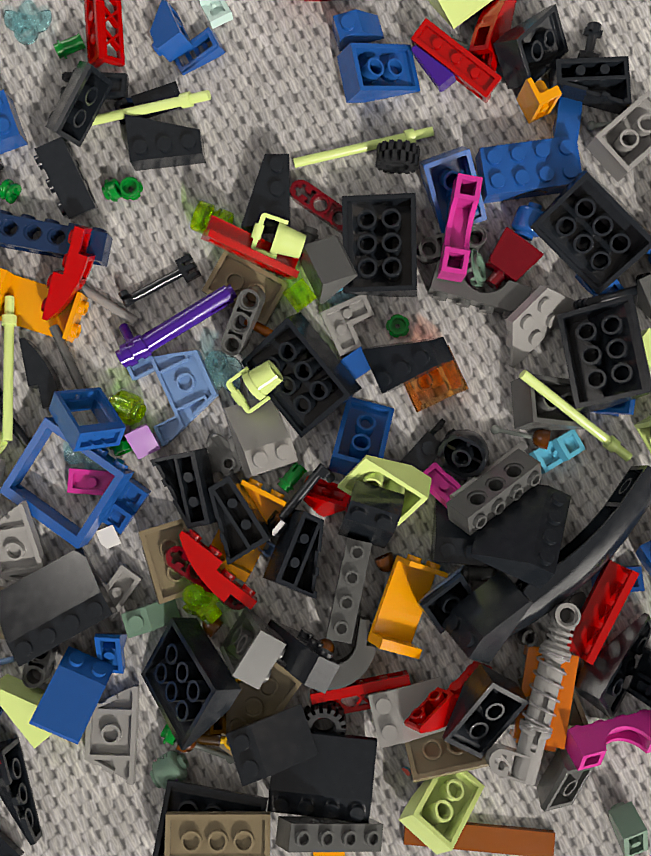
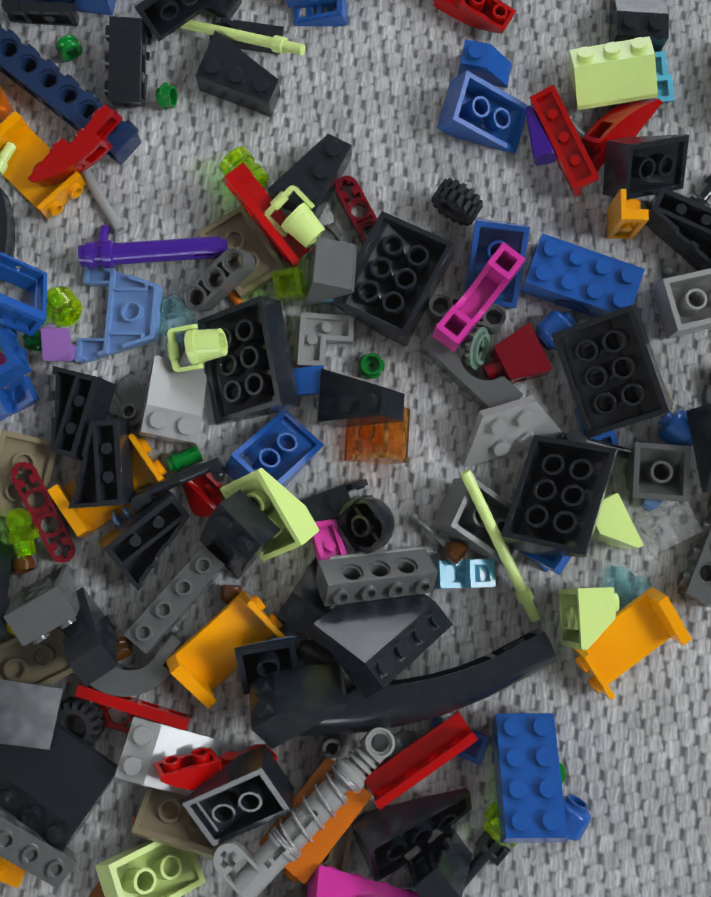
camera: 25 degrees right, 5 degrees down
(67, 357) = (33, 229): dark grey bar -> none
(129, 182) = (184, 97): green plate -> none
(182, 271) = (192, 205): black hinge -> none
(206, 564) = (46, 495): red slope -> none
(409, 135) = (481, 188): yellowish green bar -> none
(567, 118) = (648, 251): blue slope -> none

